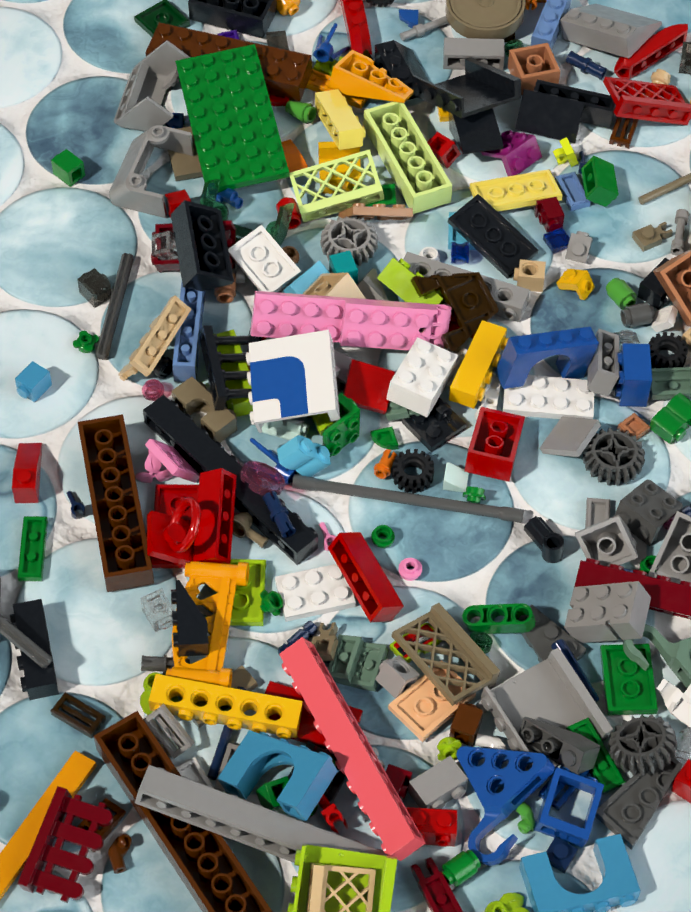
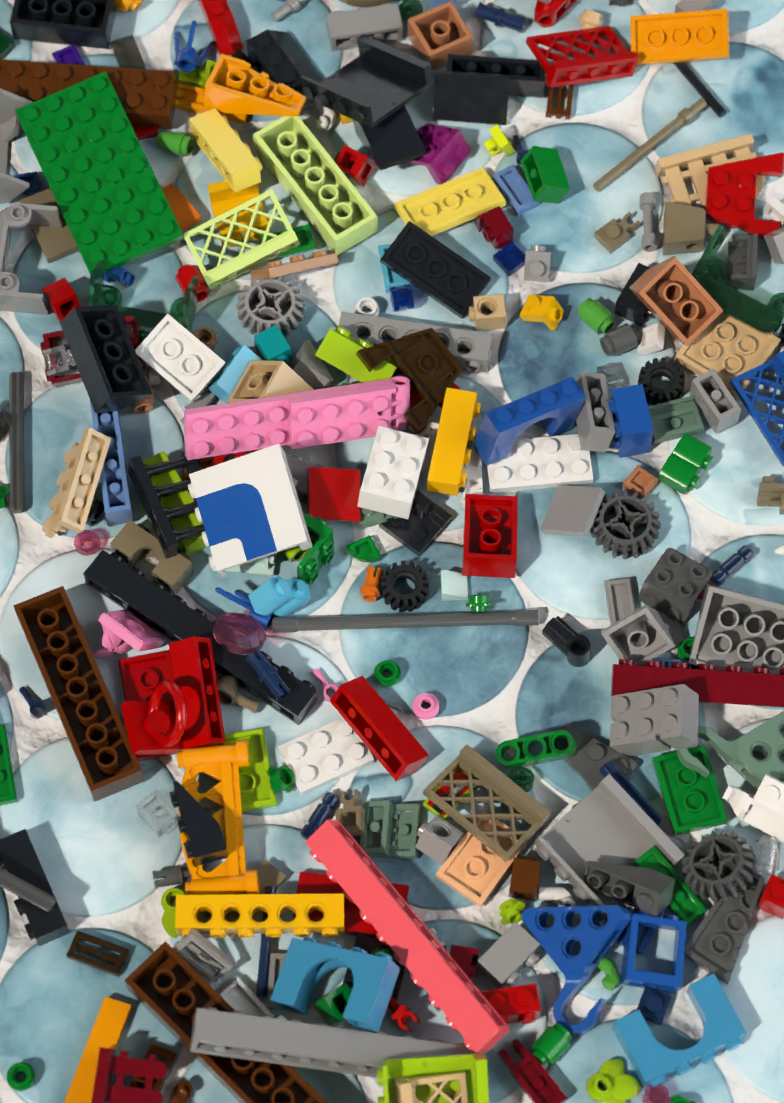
camera: 10 degrees left, 10 degrees up
(428, 112) = (326, 119): none -> white arm

